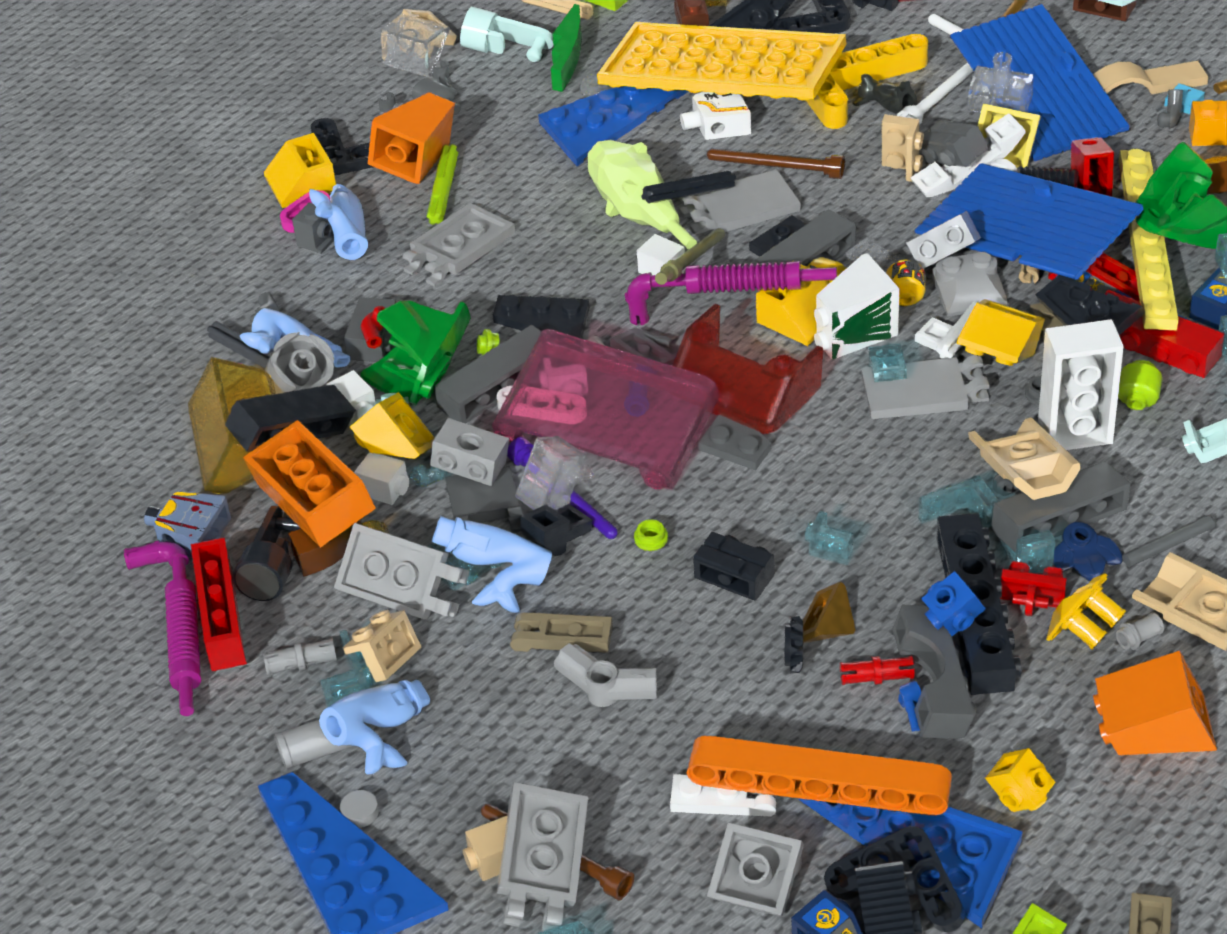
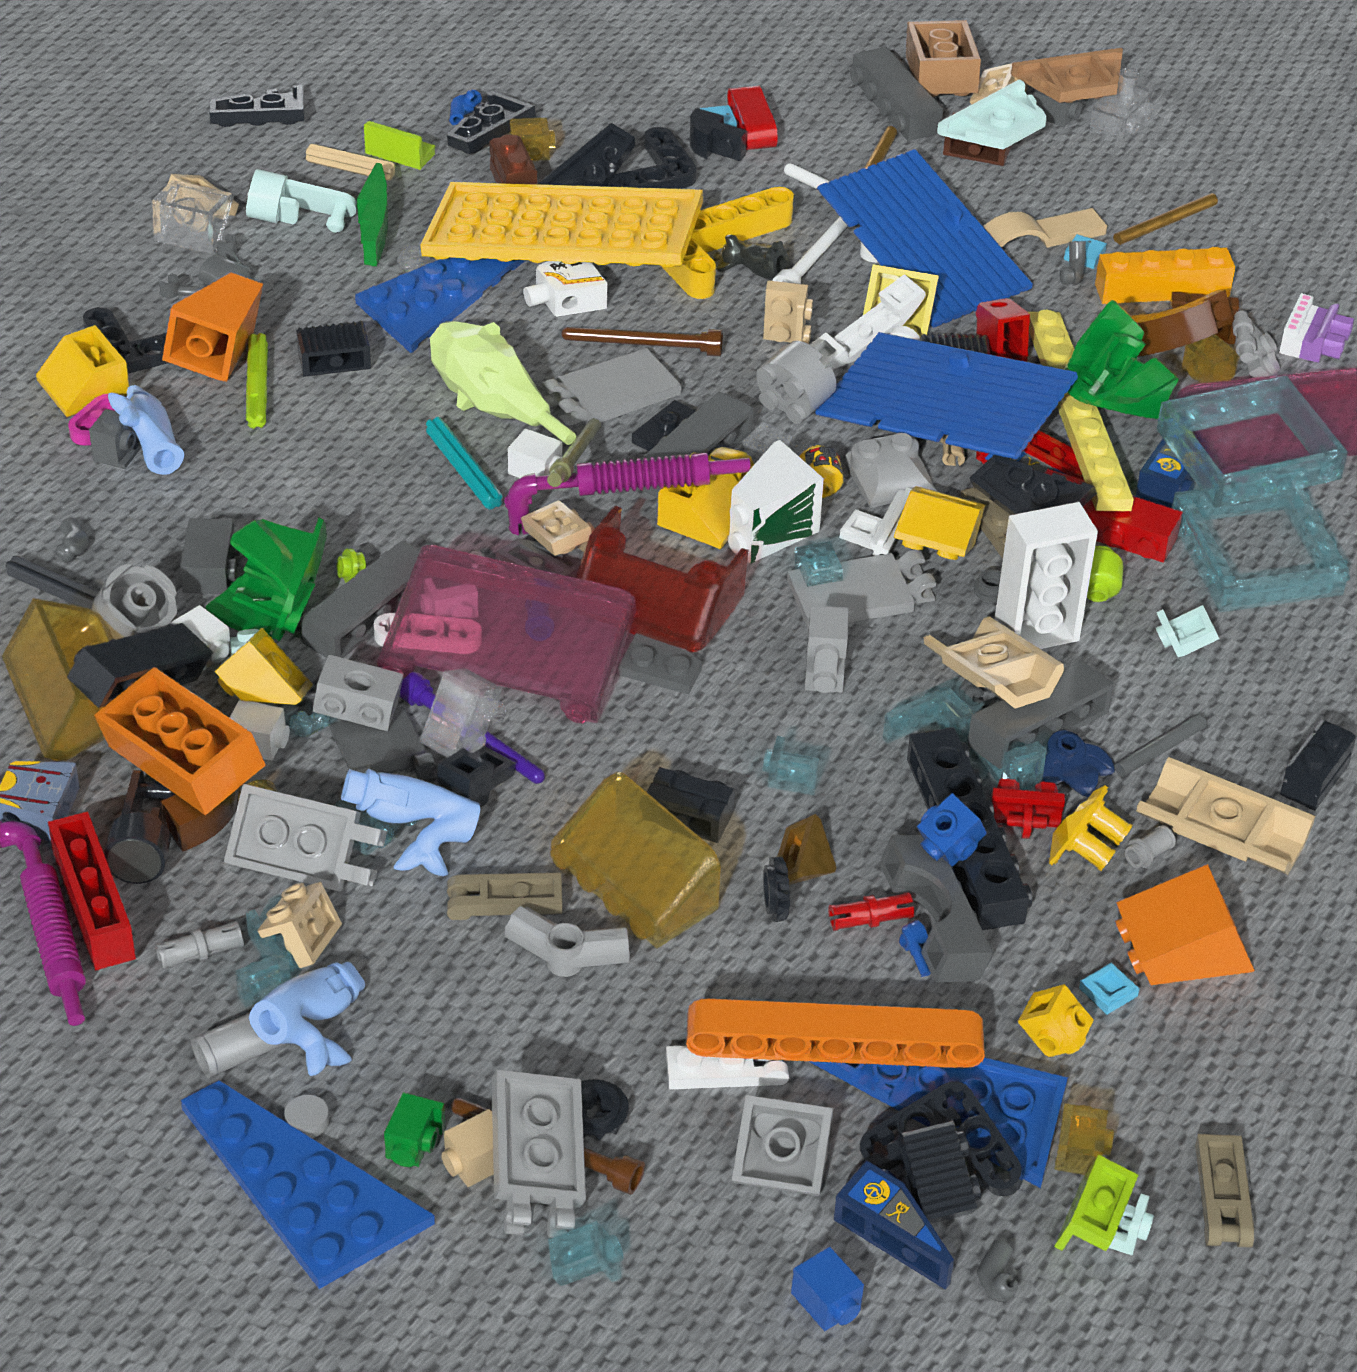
camera: 15 degrees left, 0 degrees up
(272, 325) = (88, 559): light blue piece -> none
(371, 328) = (214, 551): red arm -> none
(443, 827) = (413, 1129): none -> green brick
(457, 242) = (288, 448): light grey tile -> none
(510, 160) = (333, 348): none -> black brick
(556, 314) = (412, 525): black wing -> none
(601, 261) = (464, 463): none -> teal axle
(618, 822) = (613, 1107): none -> black gear
(650, 535) = (584, 775): lime plate -> none
(665, 320) = (558, 528): none -> tan bracket
(679, 612) = (639, 860): none -> clear yellow windscreen
(688, 187) = (555, 372): black axle -> none
(878, 437) = (826, 649): none -> light grey brick
(897, 203) = (795, 381): none -> light grey brick
(943, 240) = (856, 421): brick -> none
(953, 144) = (845, 311): dark grey brick -> none
(1000, 86) = (886, 244): clear brick -> none
(1025, 884) = (1082, 1138): none -> clear yellow brick
(1078, 755) = (1109, 988): none -> medium azure tile

